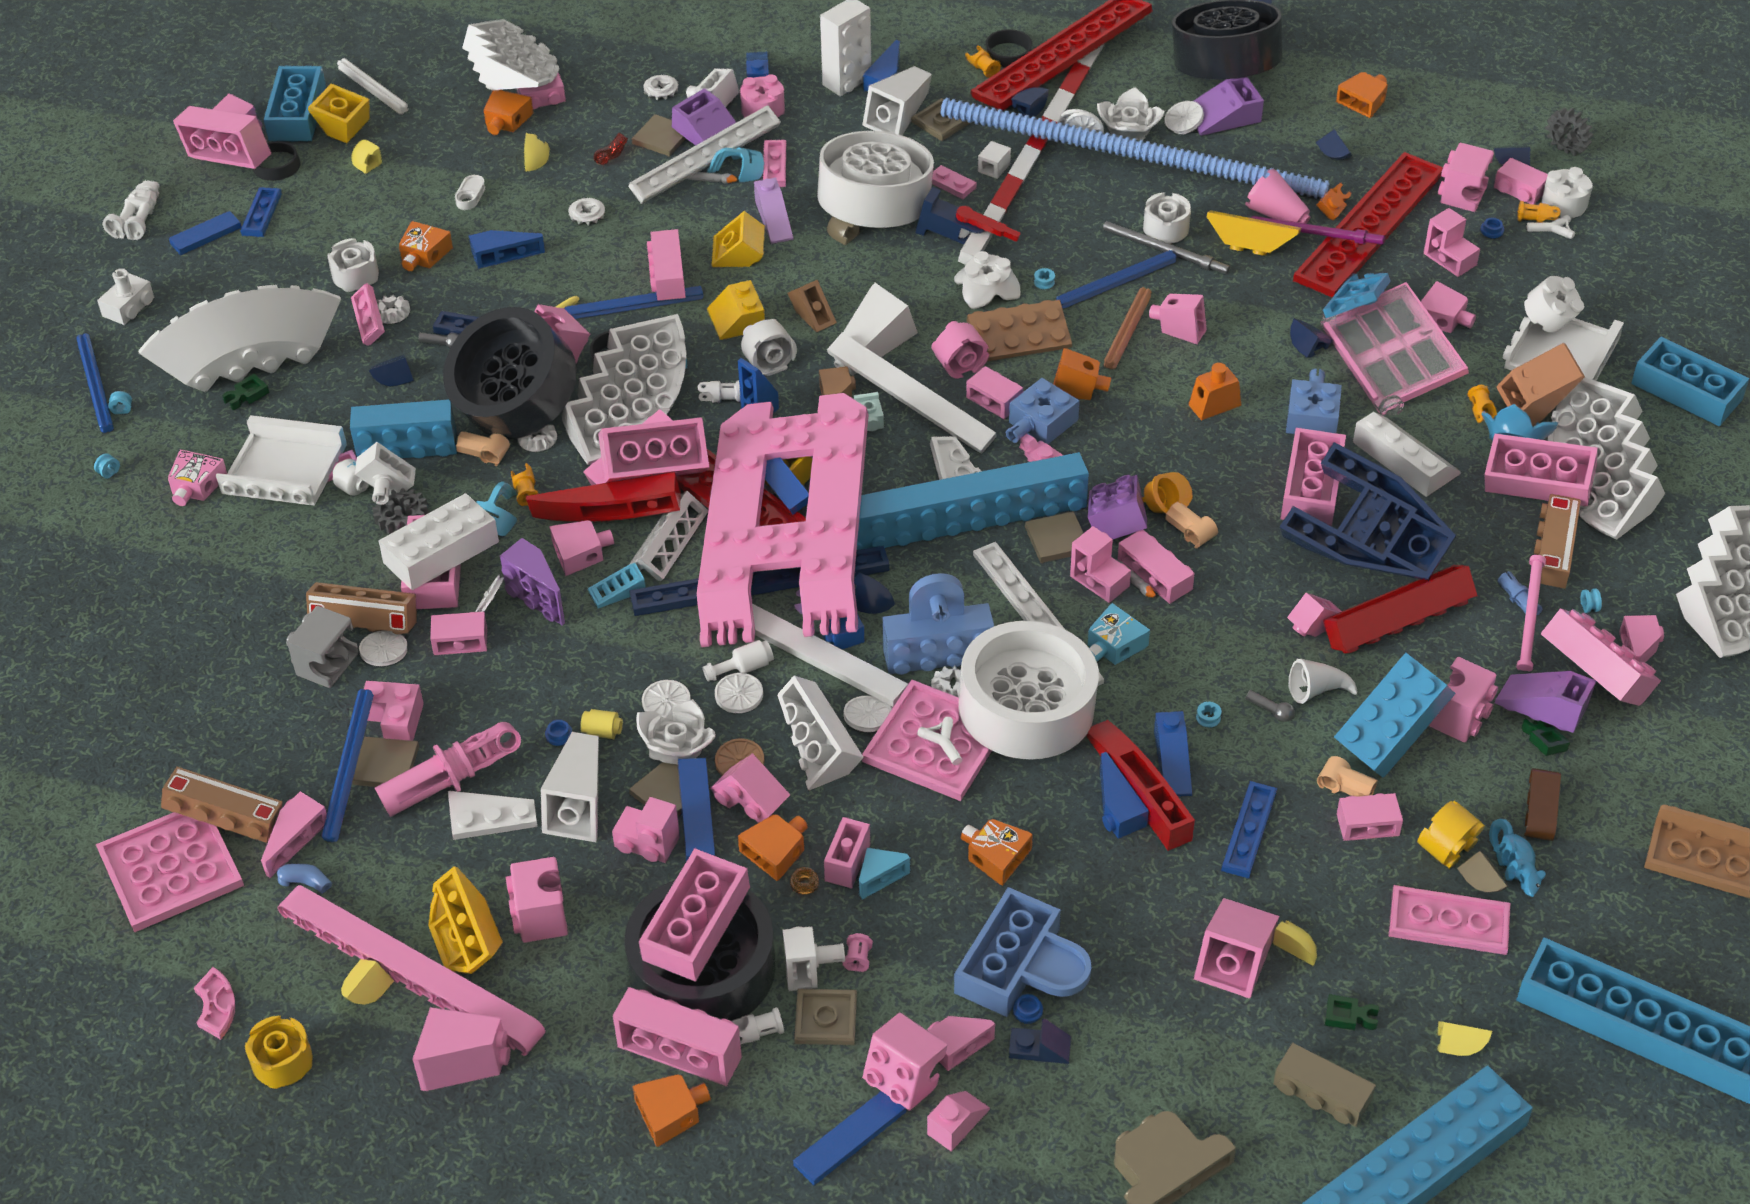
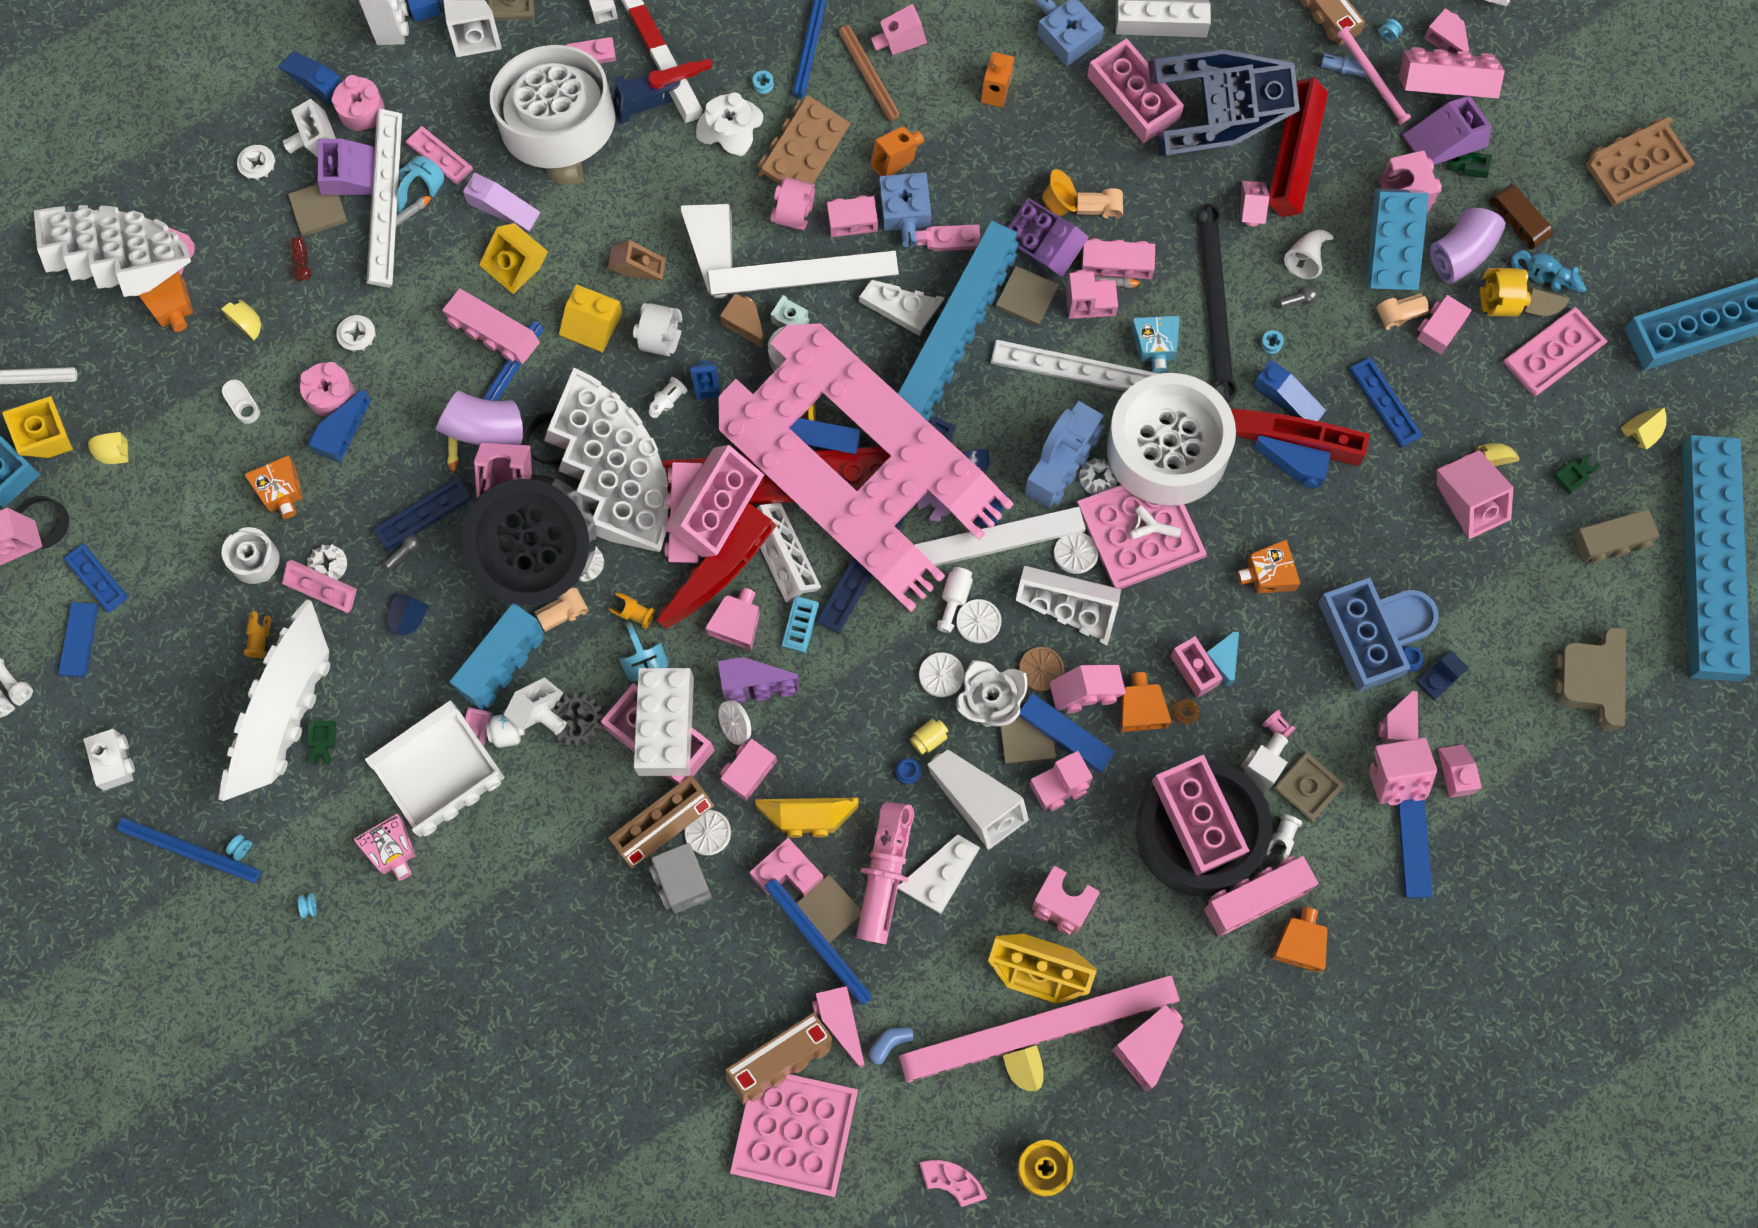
camera: 50 degrees left, 25 degrees up
(457, 694) = (807, 815): none -> yellow wedge
(524, 215) = (316, 383): none -> bright pink brick
(581, 297) = (481, 420): none -> lavender brick
(1196, 656) = (1216, 301): none -> black piece
(1462, 776) = (1466, 244): none -> lavender brick

